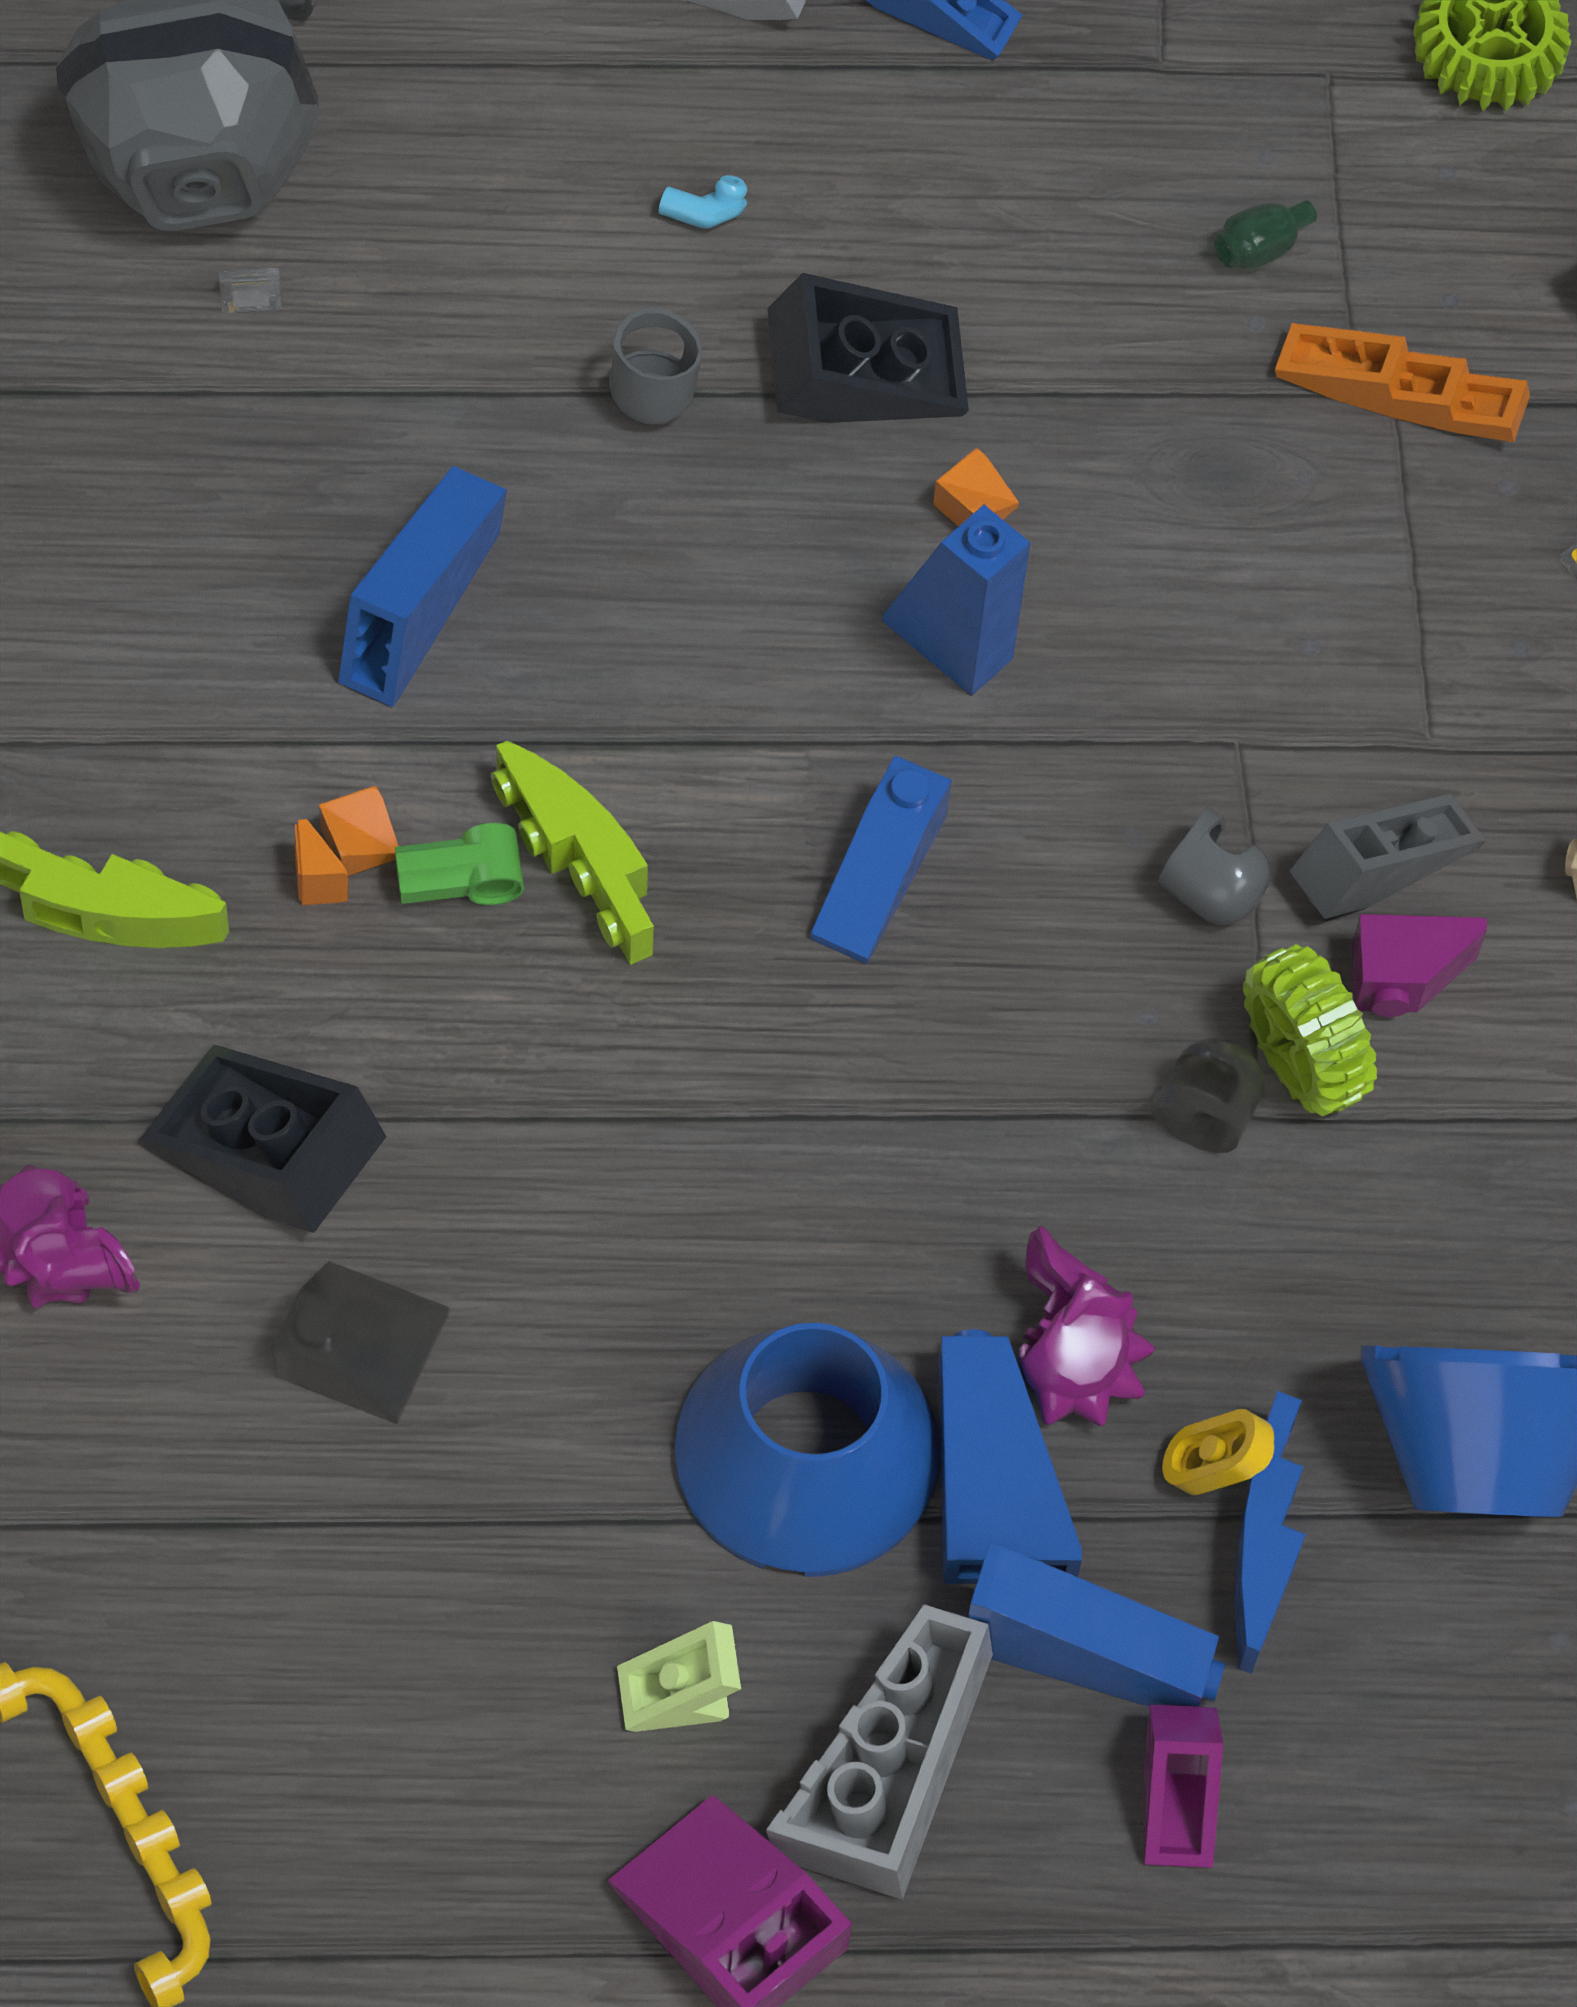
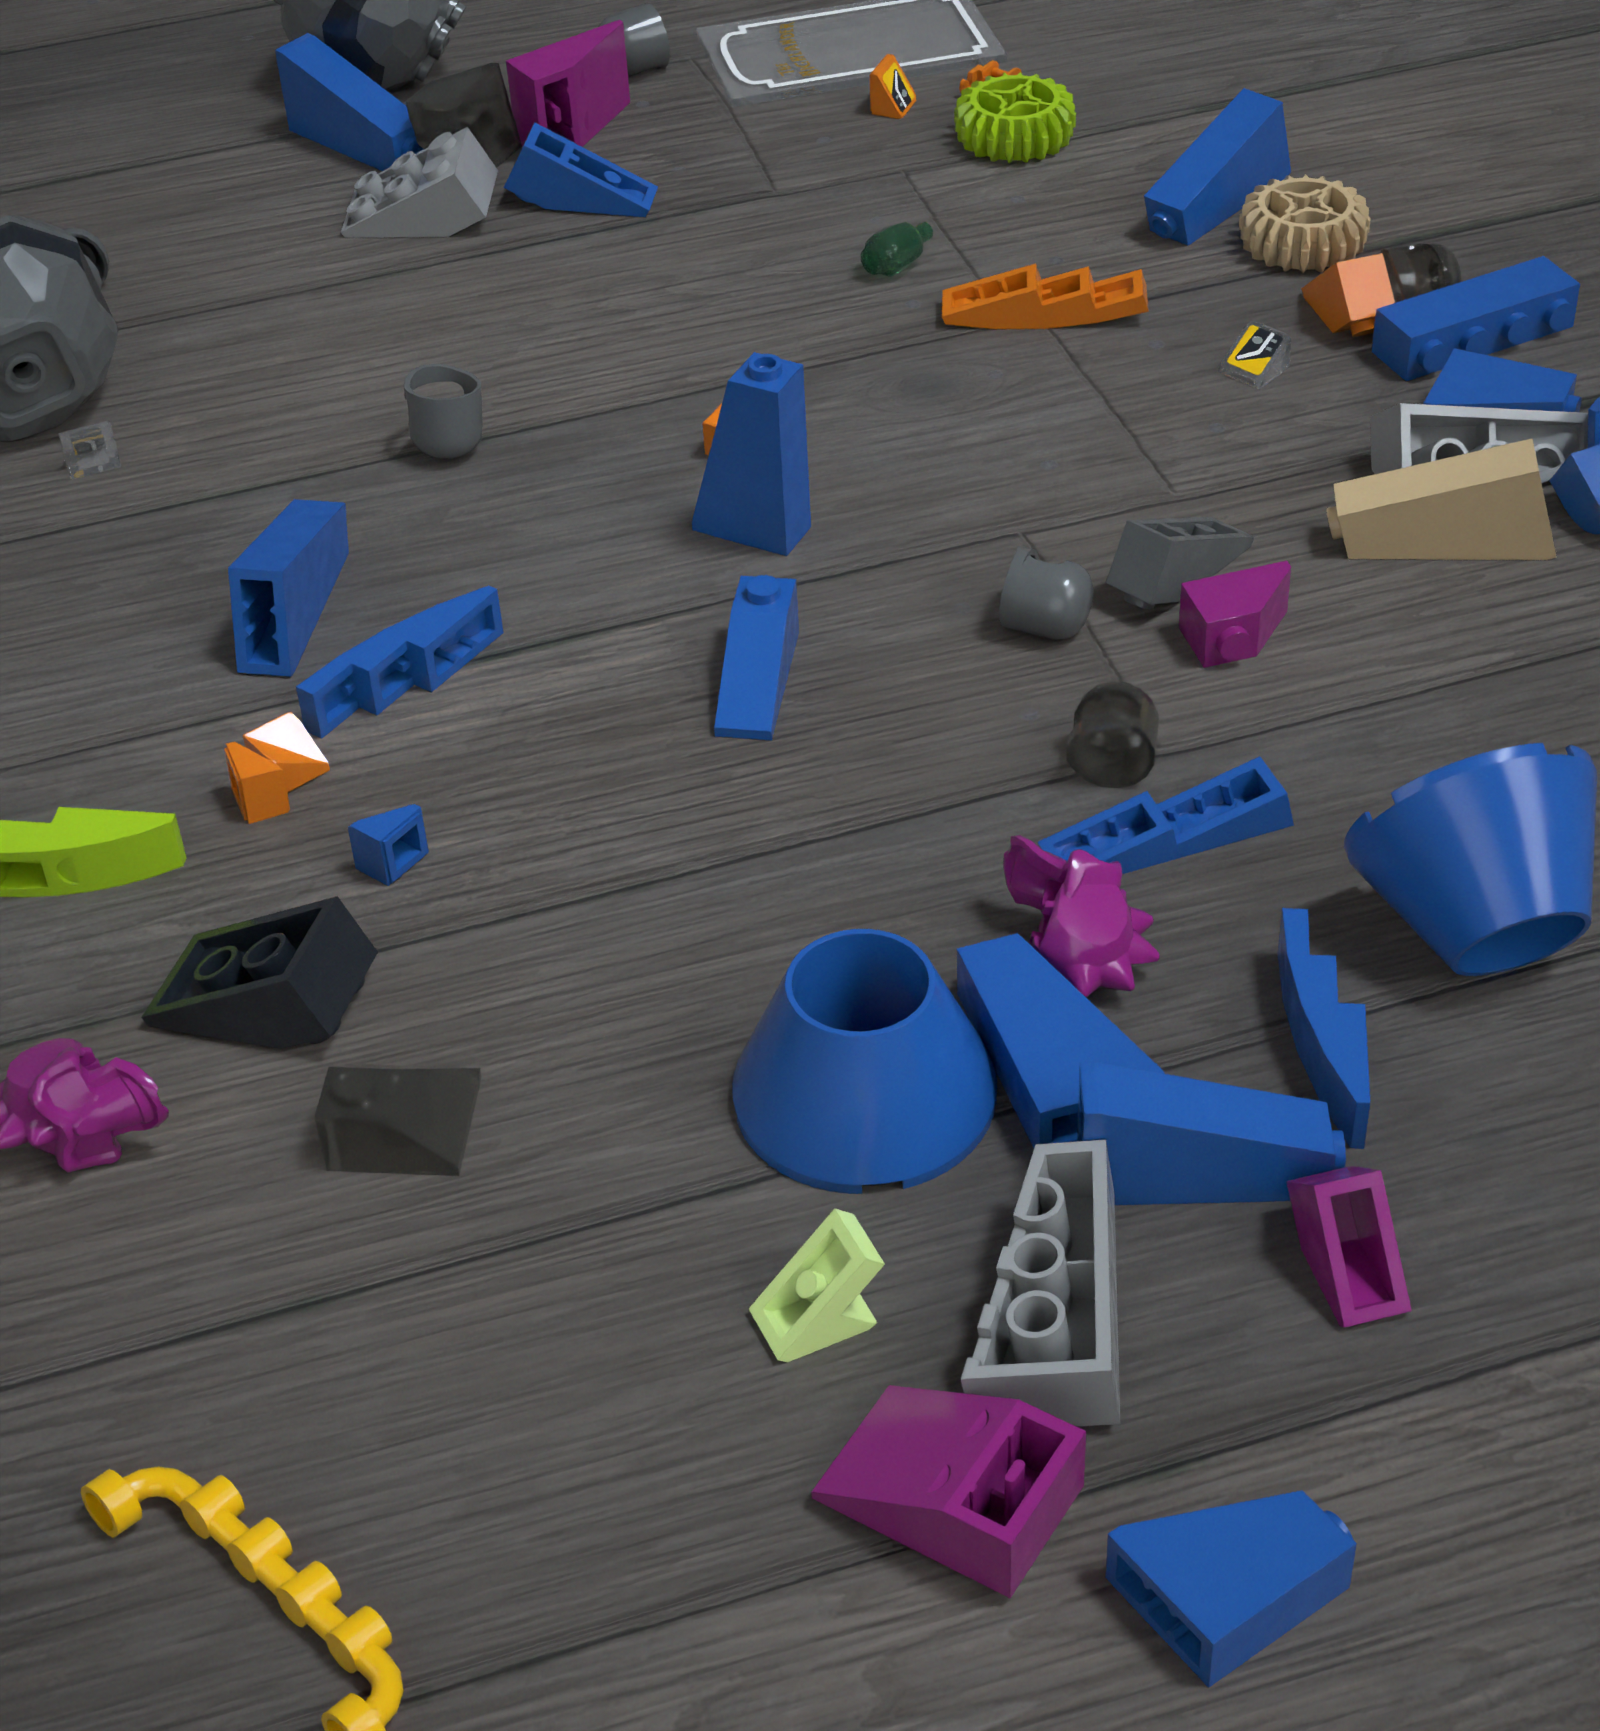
camera: 10 degrees left, 20 degrees down
(433, 996) = (389, 843): none -> blue slope
(478, 865) = (401, 747): bright green piece -> none
(545, 723) = (409, 653): none -> blue slope
(578, 833) = (483, 704): lime slope -> none
(709, 210) = (450, 334): medium azure arm -> none
(864, 354) = (609, 374): black slope -> none
(1218, 1452) = (1252, 967): yellow plate -> none
(1228, 1227) = (1208, 816): none -> blue slope
(1310, 1029) = (1181, 660): lime gear -> none

